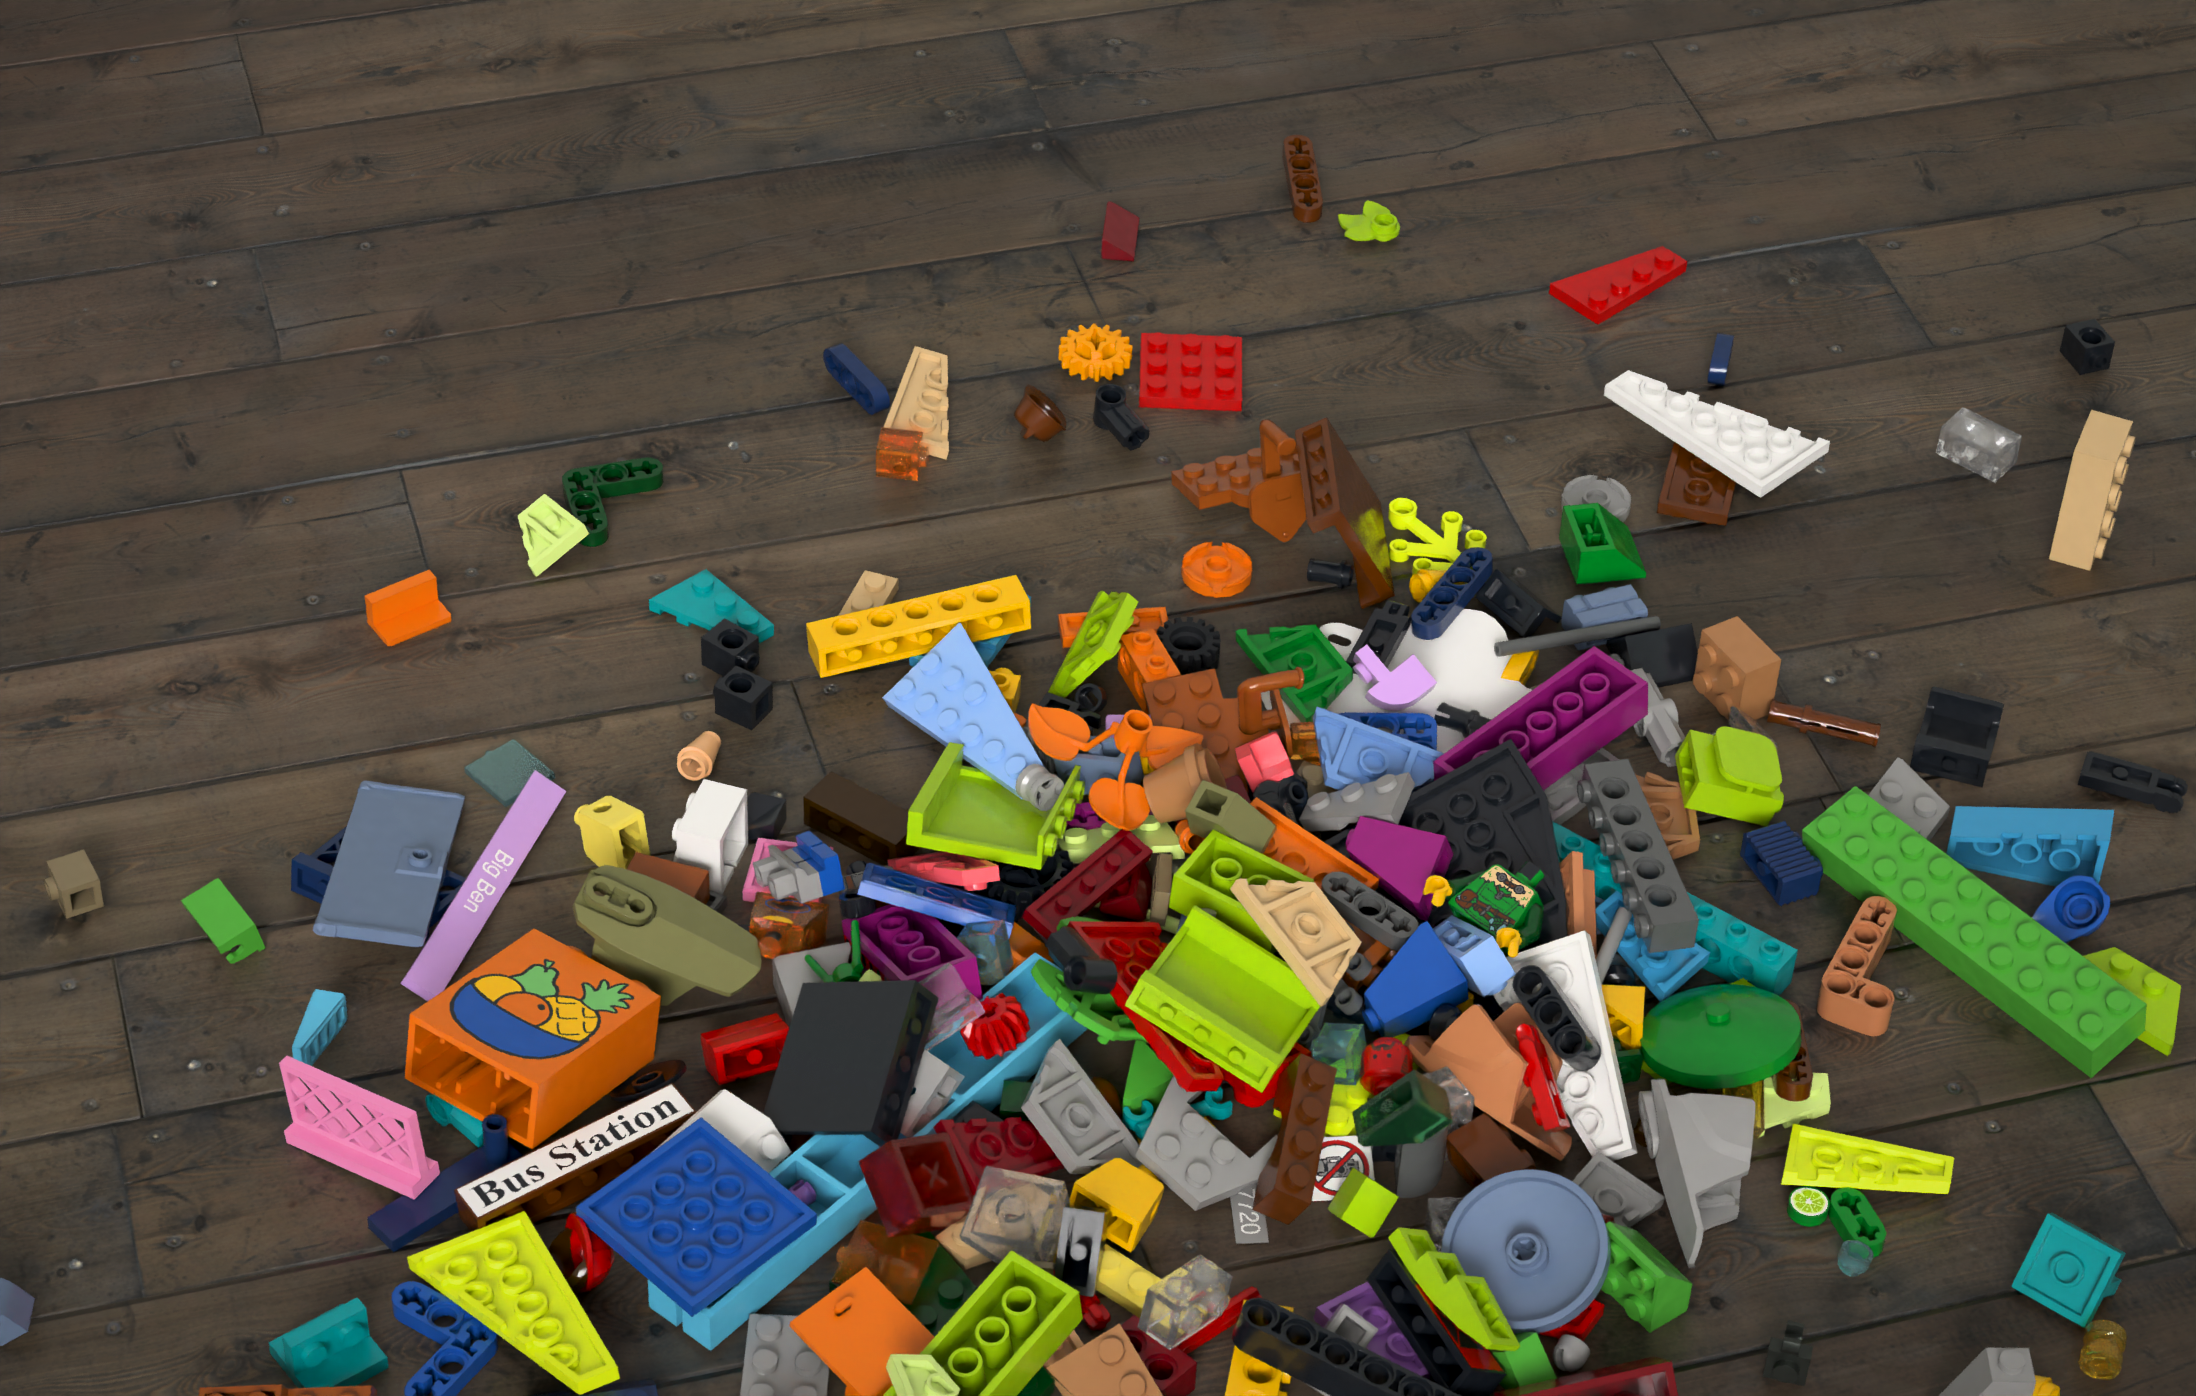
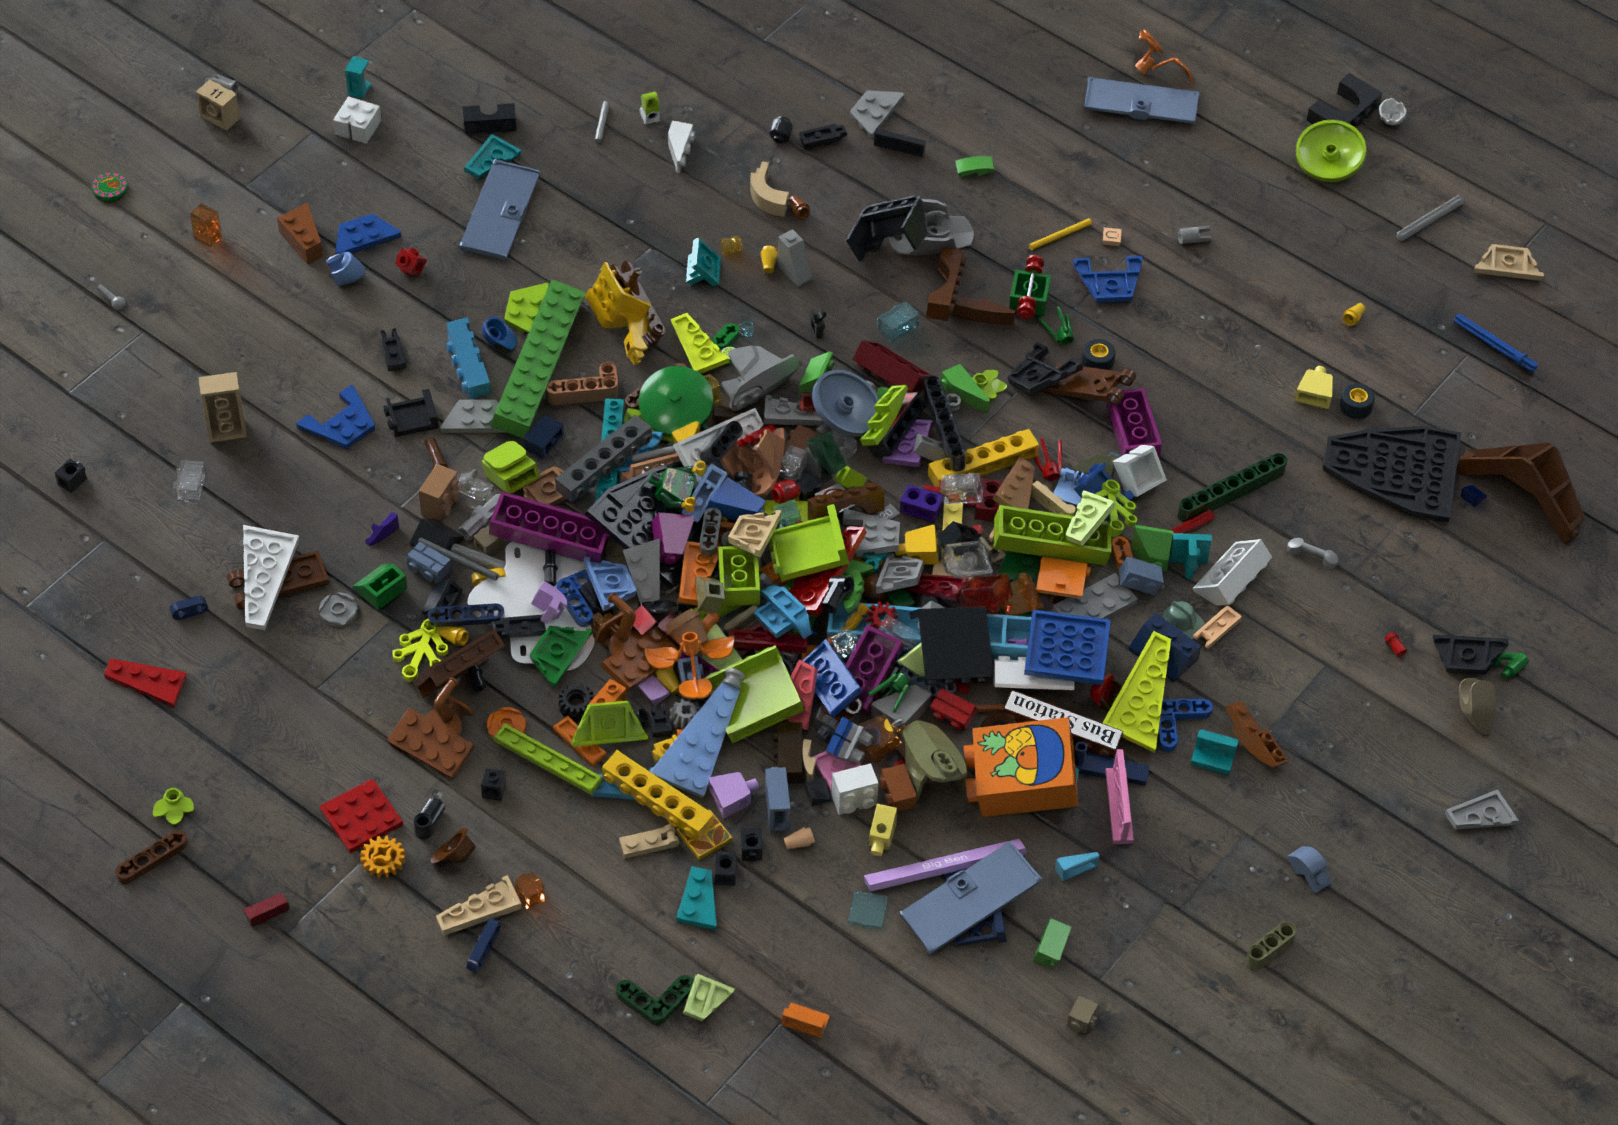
camera: 125 degrees left, 10 degrees up
(781, 744) = (777, 799): none -> sand blue brick
(801, 679) = (712, 840): none -> tile
(829, 828) = (808, 762): none -> tan slope
(857, 722) = (731, 792): none -> lavender torso
(1034, 1008) = (855, 617): none -> yellow axle
(1109, 562) = (548, 759): none -> lime tile
(1113, 496) = (493, 784): none -> black brick
(1115, 900) = (782, 612): none -> dark azure plate
(1235, 1251) = (921, 503): none -> dark purple brick
(1719, 602) = (385, 529): none -> dark purple slope
(1989, 667) = (346, 426): none -> blue wing
(2026, 1071) = (622, 302): none -> yellow piece

